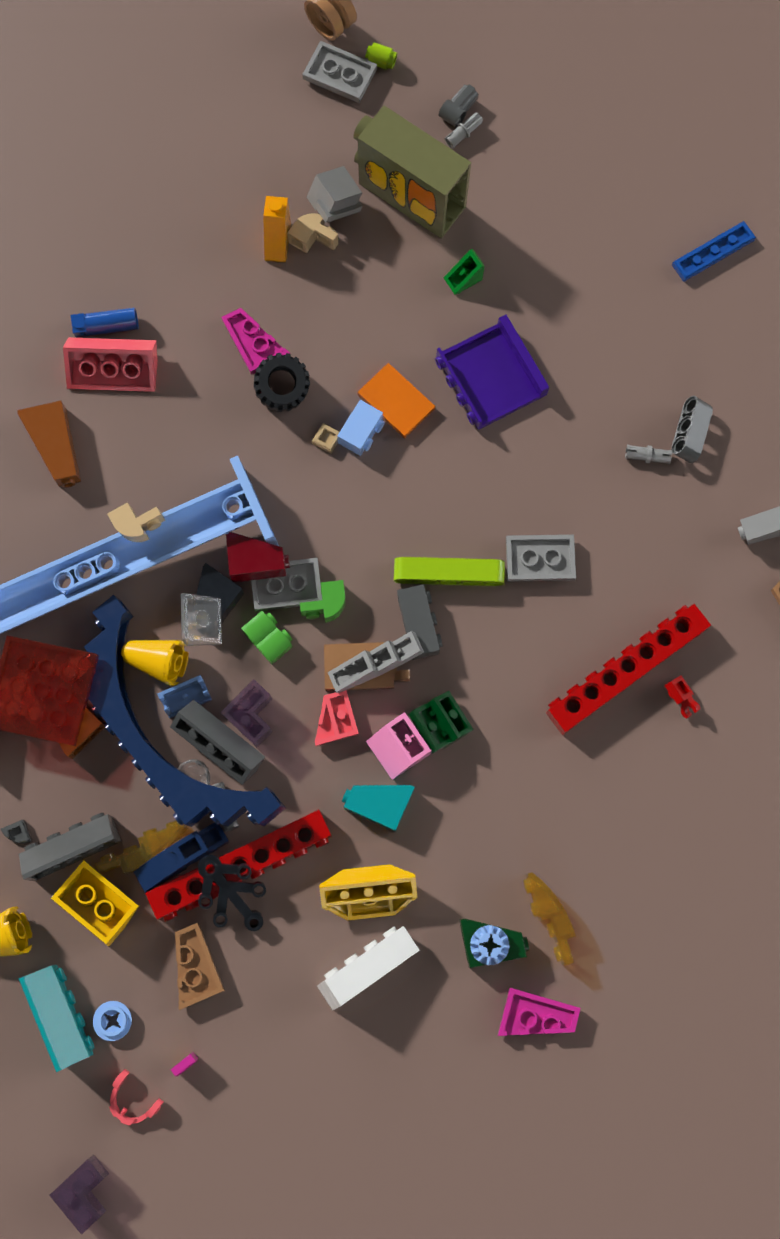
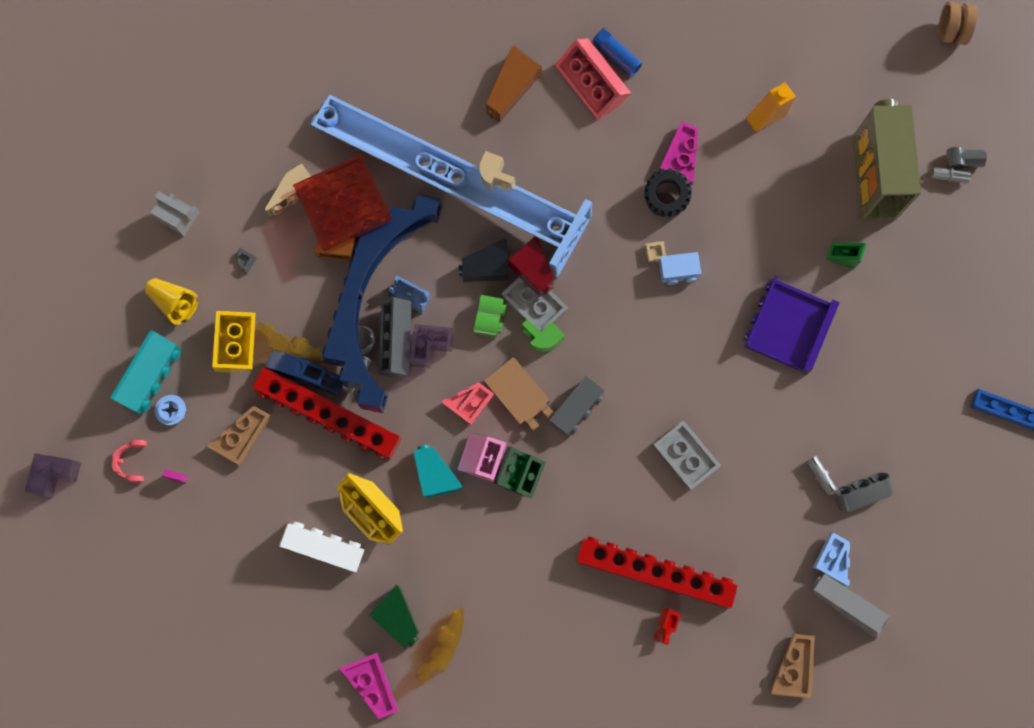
camera: 55 degrees right, 0 degrees up
(69, 847) = (257, 298): dark grey slope -> none
(158, 658) = (420, 259): yellow cone -> none
(200, 620) = (464, 264): clear slope -> none
(229, 890) = (304, 419): black plant -> none
(308, 230) = (789, 129): tan brick -> none
(335, 194) = (827, 126): light grey plate -> none
(339, 71) = (920, 63): light grey plate -> none
(376, 662) = (526, 399): light grey slope -> none
(381, 55) = (956, 81): lime brick -> none
(398, 400) = (719, 277): orange tile -> none
(449, 571) = (628, 401): lime beam -> none
(480, 952) = (395, 607): light blue gear -> none
(731, 501) = (834, 559): none -> light blue wing

